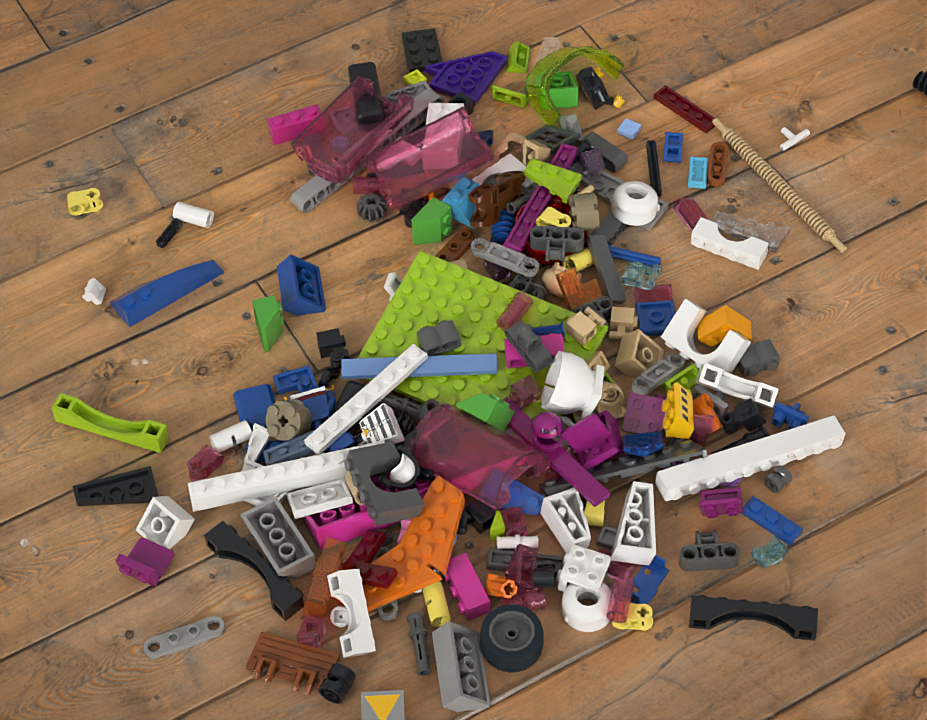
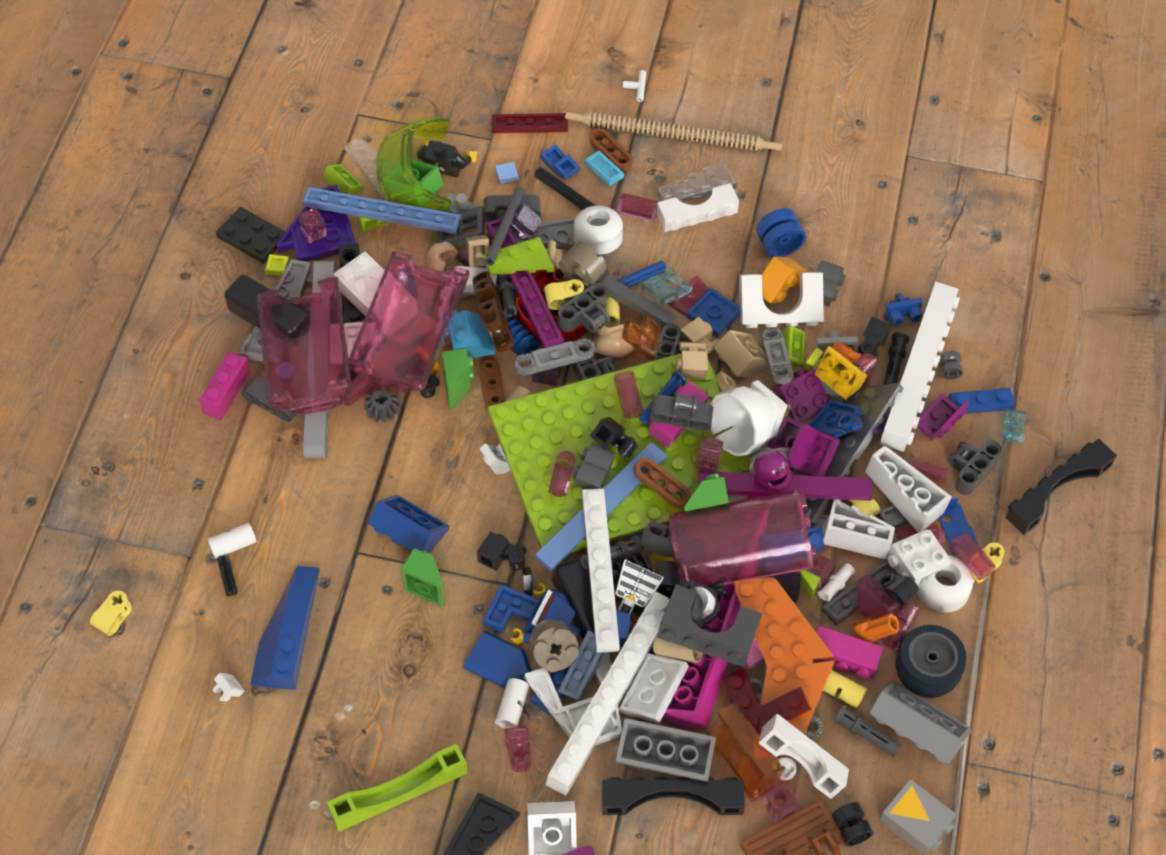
camera: 50 degrees left, 5 degrees up
(412, 325) = (562, 474): none -> clear pink piece
(457, 67) = (312, 225): none -> clear pink brick
(470, 374) = (670, 484): none -> dark orange plate
(472, 324) = (610, 434): none -> black brick
(512, 90) = (382, 210): none -> medium blue tile
(567, 151) = (504, 226): none -> dark grey piece
(670, 527) = (929, 470): none -> clear pink pin
(732, 385) = (846, 316): white arch -> none
(761, 299) = (781, 232): none -> blue wheel

